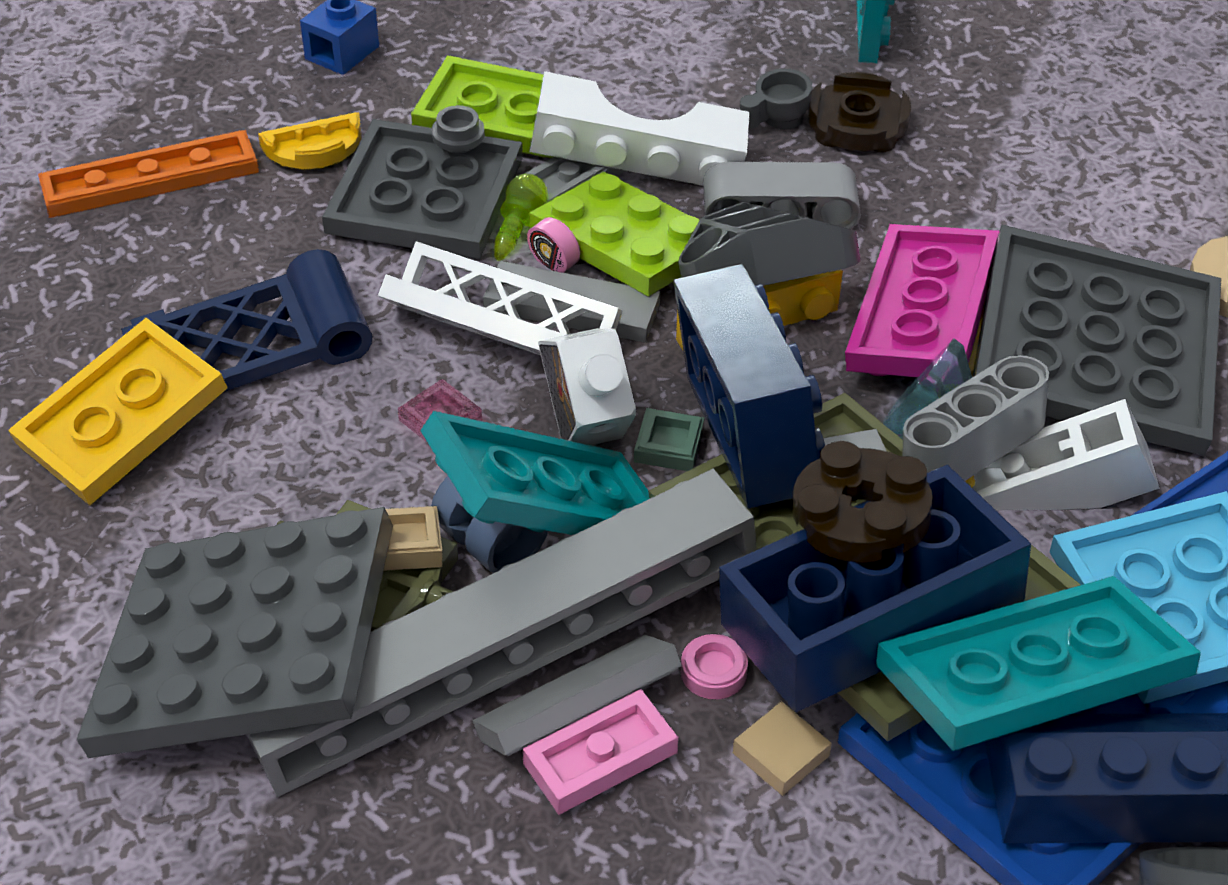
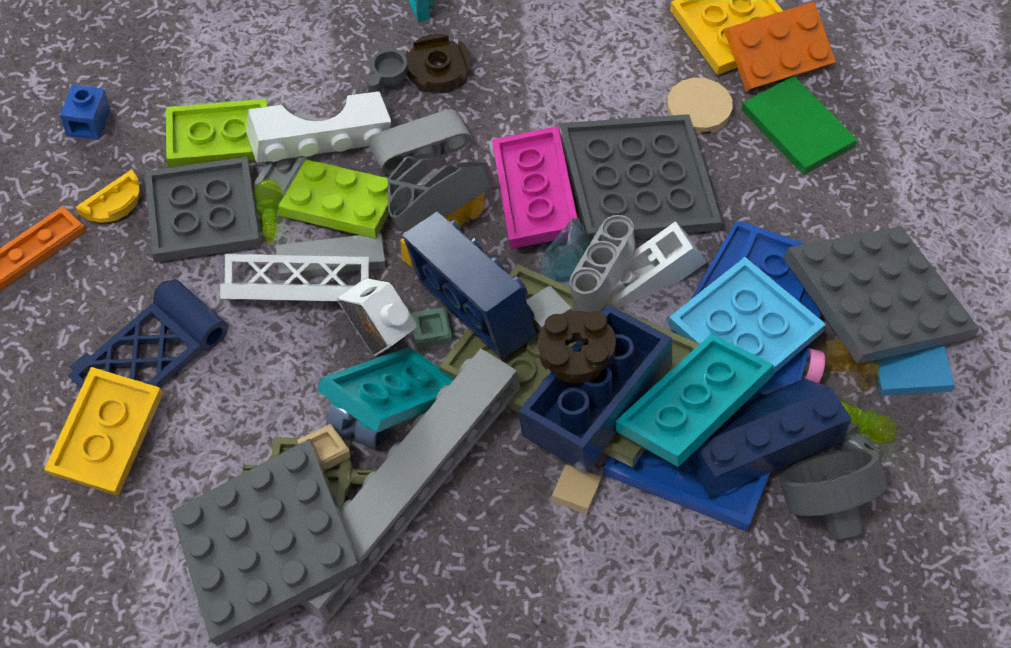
camera: 25 degrees left, 10 degrees up
(439, 398) = (292, 360): clear pink tile -> none
(458, 129) = (207, 164): flat silver plate -> none
(553, 245) = (303, 223): bright pink tile -> none
(577, 694) = (458, 502): light grey tile -> none
(600, 751) = (486, 529): bright pink plate -> none
(714, 666) = (520, 456): bright pink tile -> none

